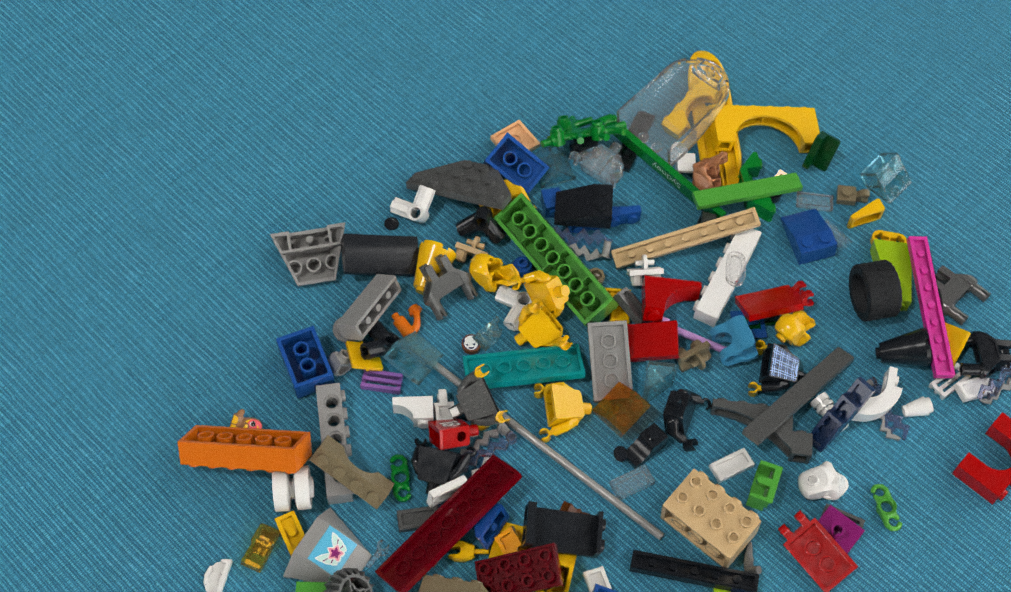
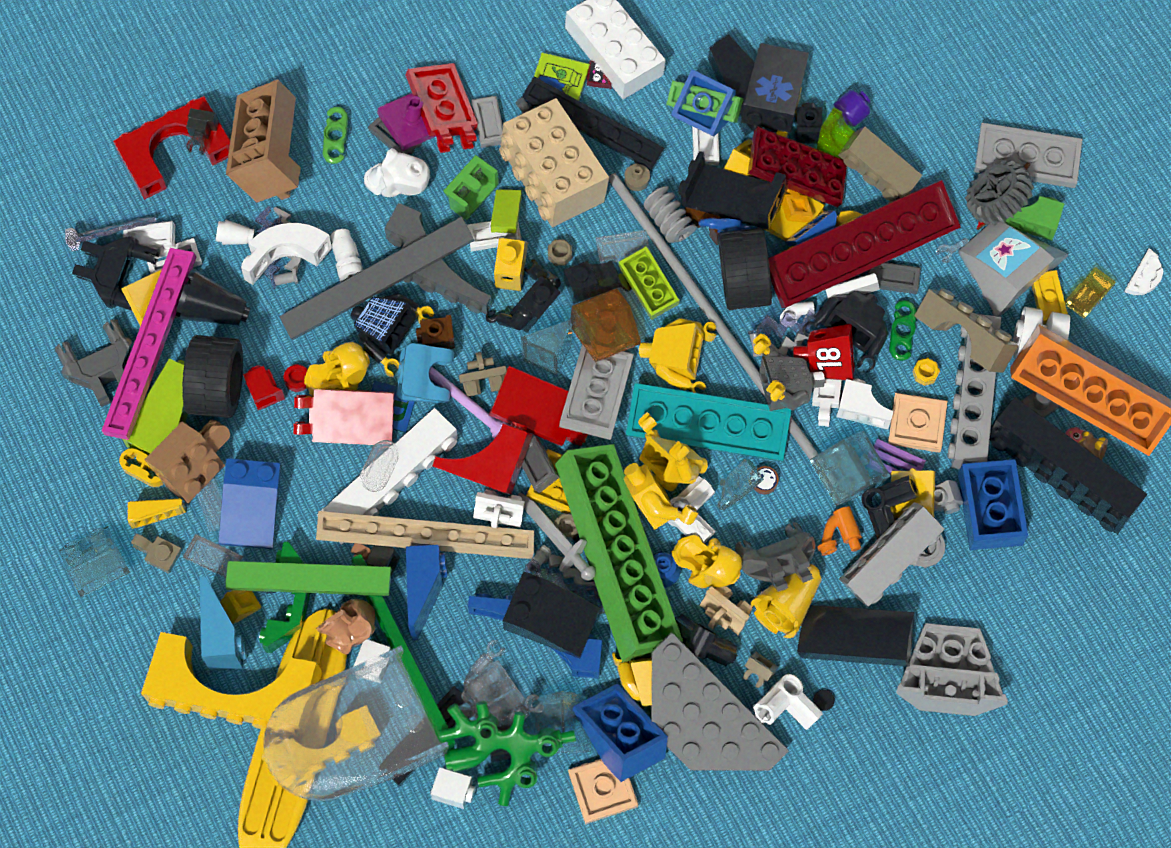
camera: 160 degrees left, 10 degrees up
(257, 398) = (1066, 466): none -> black brick
(372, 414) = (917, 422): none -> light nougat tile
(375, 449) = (926, 371): none -> yellow tile
(437, 225) = (762, 667): none -> dark tan tile
(537, 467) = (745, 268): none -> black tyre
(562, 496) = (723, 225): none -> blue piece
(584, 252) = (571, 552): none -> light grey sword
(596, 503) = (667, 217): none -> light grey piece
(602, 454) = (648, 283): none -> lime piece
(604, 108) = (452, 788): none -> white brick
(642, 541) = (637, 177): none -> dark tan tile
(676, 209) = (424, 582): none -> blue slope
(677, 462) = (559, 252): none -> dark tan tile
(709, 429) = (510, 263): none -> yellow torso
(730, 477) = (506, 211): none -> lime tile
(735, 380) = (442, 339): none -> reddish brown brick
(776, 554) = (488, 120): none -> light grey tile
(788, 153) = (219, 640): none -> dark azure slope
(821, 151) = (168, 620): dark green panel -> none
(822, 324) = (294, 378): none -> red tile
(840, 307) = (263, 387): none -> red window
(841, 413) = (342, 233): dark blue slope -> none
(862, 238) = (189, 458): none -> medium nougat brick
(936, 469) = (261, 143): none -> medium nougat hinge
(987, 465) = (199, 127): none -> pearl dark grey piece

